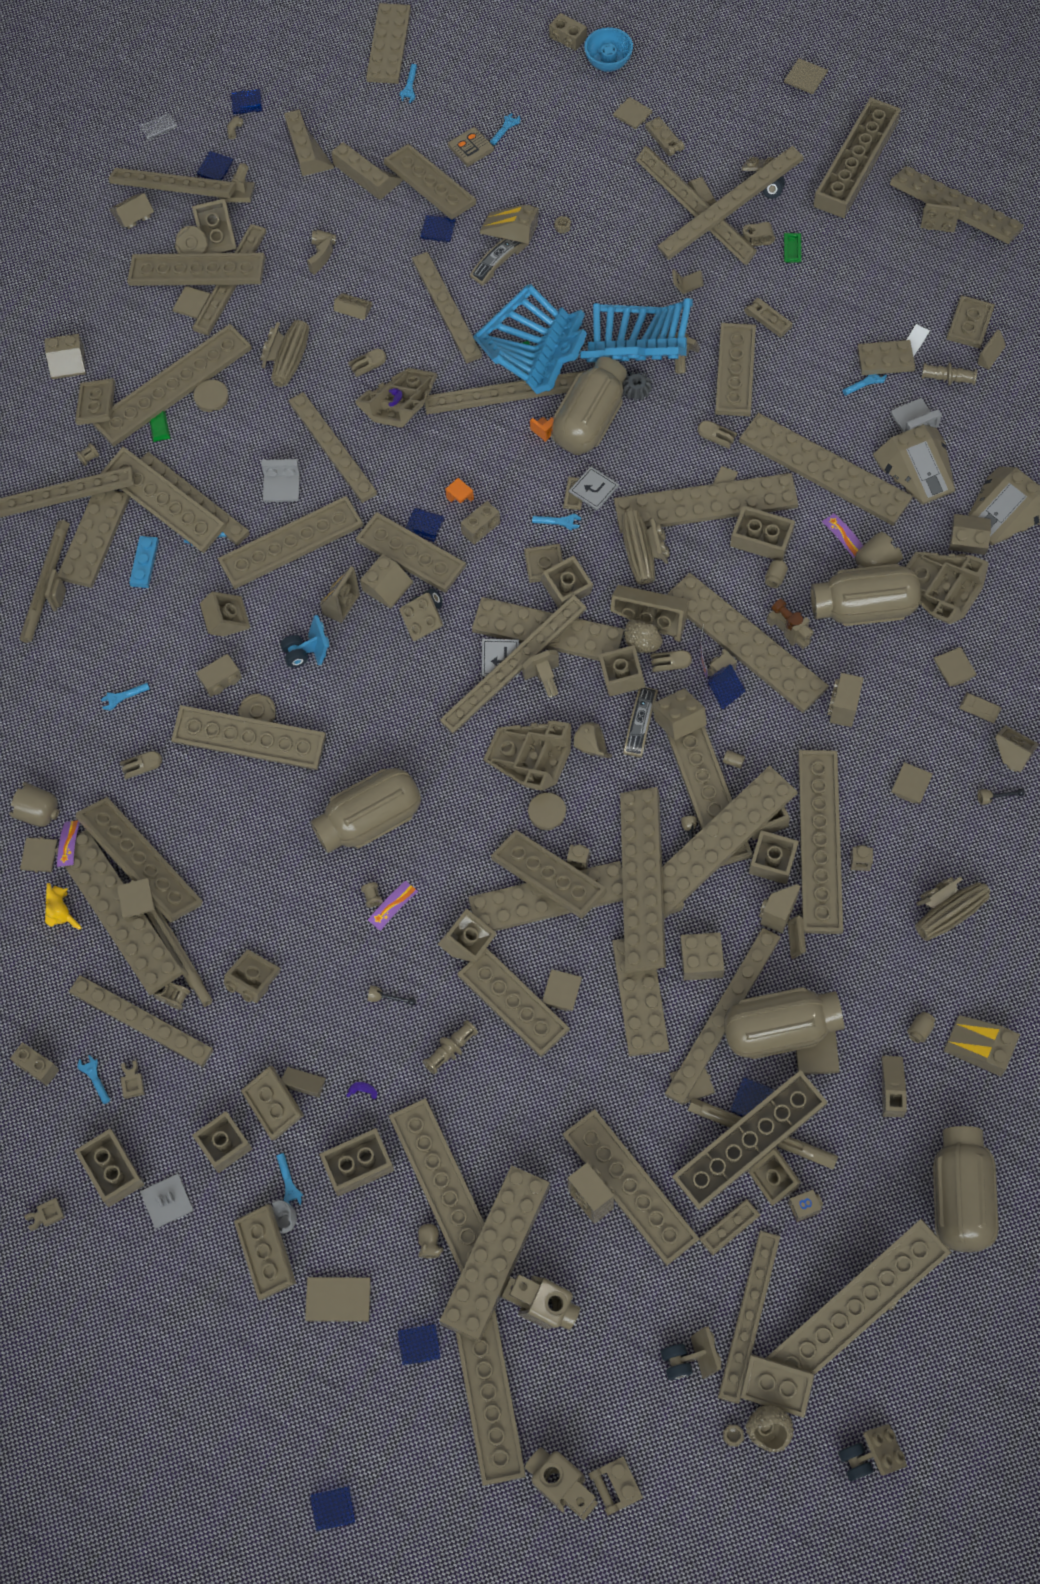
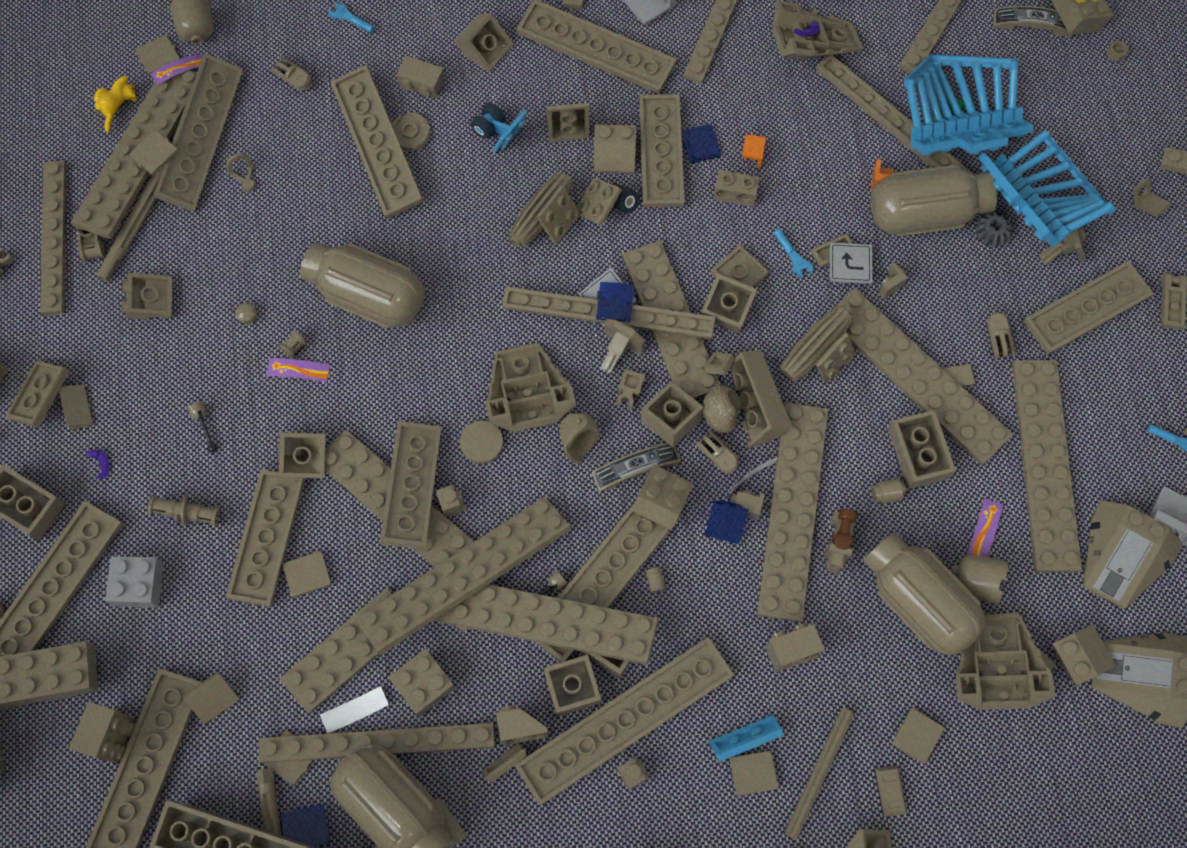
camera: 50 degrees right, 5 degrees up
(210, 851) = (247, 184): none -> dark tan piece
(319, 914) = (246, 313): none -> dark tan tile
(399, 653) = (548, 210): none -> dark tan plate
(481, 1114) = (134, 582): none -> light grey brick
(511, 652) = (615, 301): none -> clear blue piece
(579, 686) = (630, 386): none -> dark tan plate
(607, 616) = (719, 363): none -> dark tan plate
(611, 1109) = (211, 697): none -> dark tan piece
(627, 468) = (894, 282): none -> dark tan bracket
(687, 1017) = (354, 710): none -> white sticker
(885, 771) = (746, 738): none -> dark azure plate
(939, 742) = (819, 773): none -> dark tan axle

